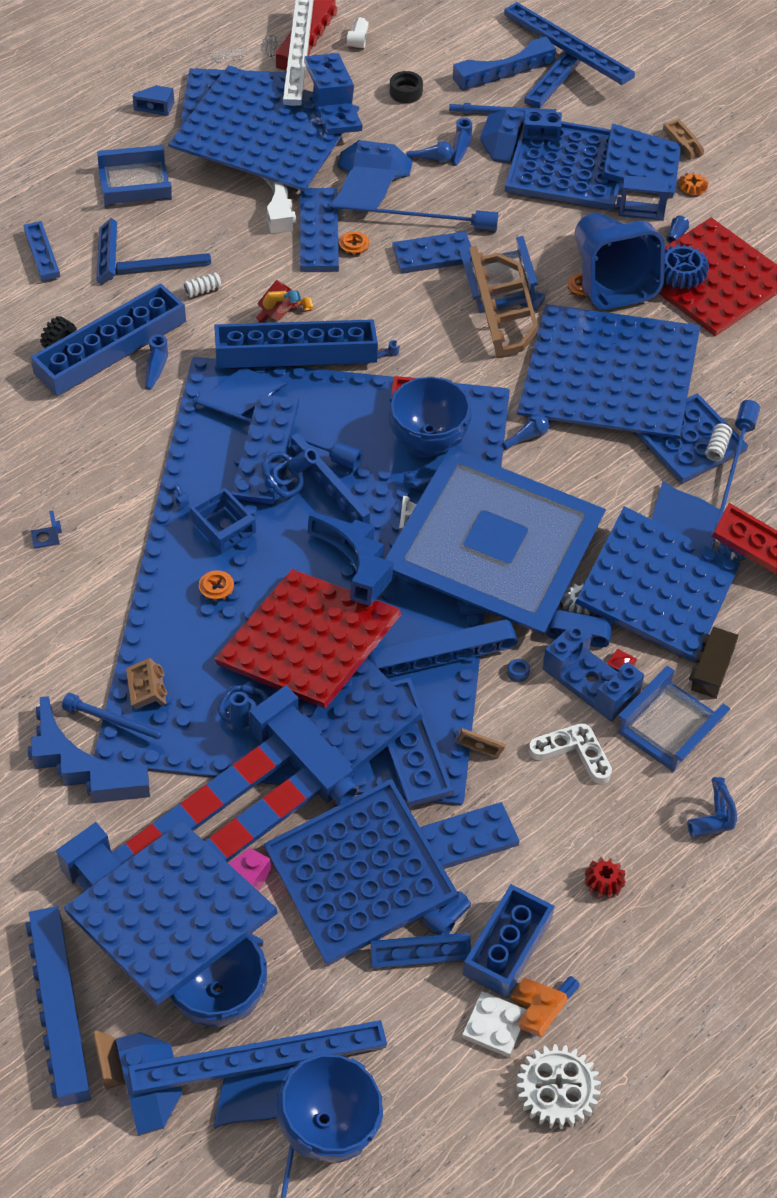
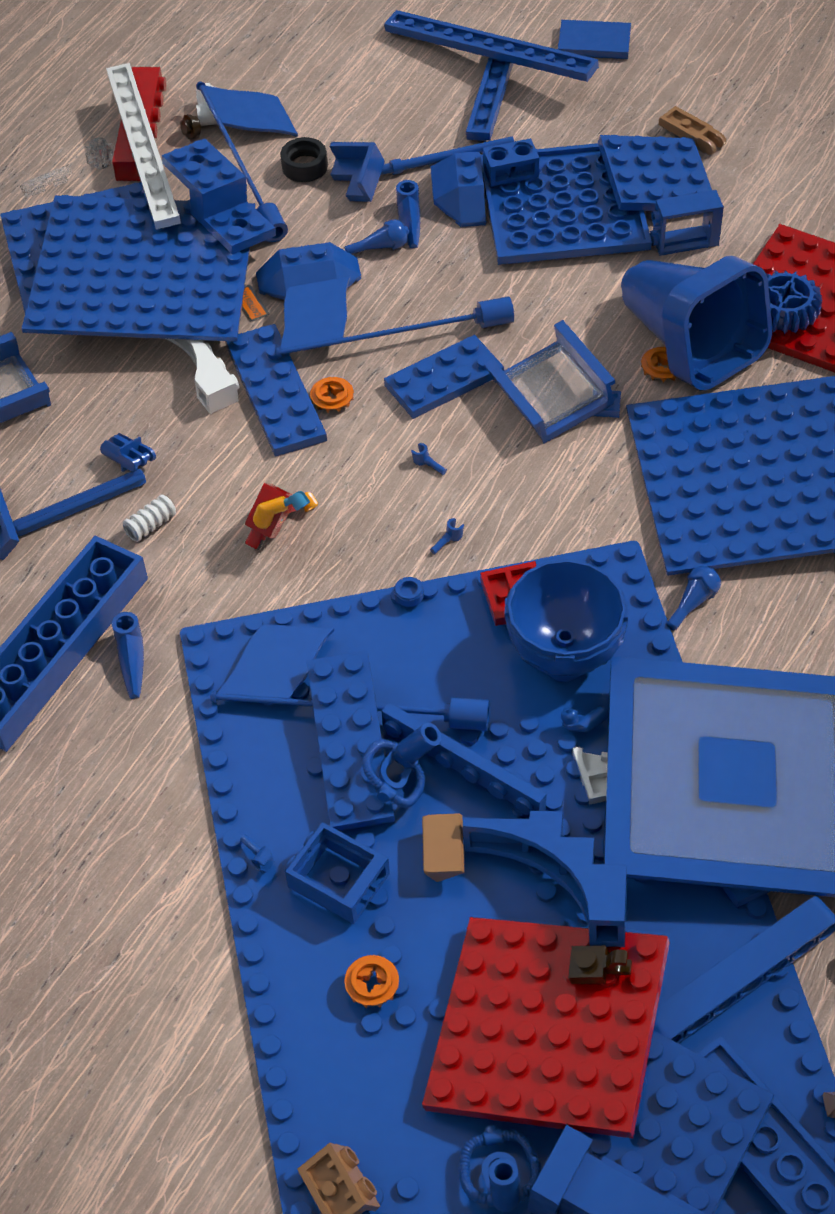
camera: 15 degrees left, 0 degrees up
(51, 531) = (88, 972): blue bracket -> none
(205, 240) = (127, 452): none -> blue arm
(293, 525) = (443, 846): none -> medium nougat slope
(295, 343) = (321, 567): blue brick -> none
(329, 171) = (253, 305): none -> sticker
(340, 44) = (190, 126): none -> dark brown plate
(345, 375) = (409, 591): none -> blue tile
(346, 609) = (593, 964): none -> dark brown plate
(382, 45) = (252, 113): none -> blue flag
(395, 299) = (423, 458): none -> blue hand
(440, 100) = (359, 164): none -> blue panel
(476, 73) = (385, 117): blue arch -> none
(489, 304) = (562, 430): medium nougat plate -> none
(648, 58) = (595, 38): none -> blue tile
(677, 228) = (746, 247): blue cone -> none
(687, 187) = (729, 191): orange gear -> none

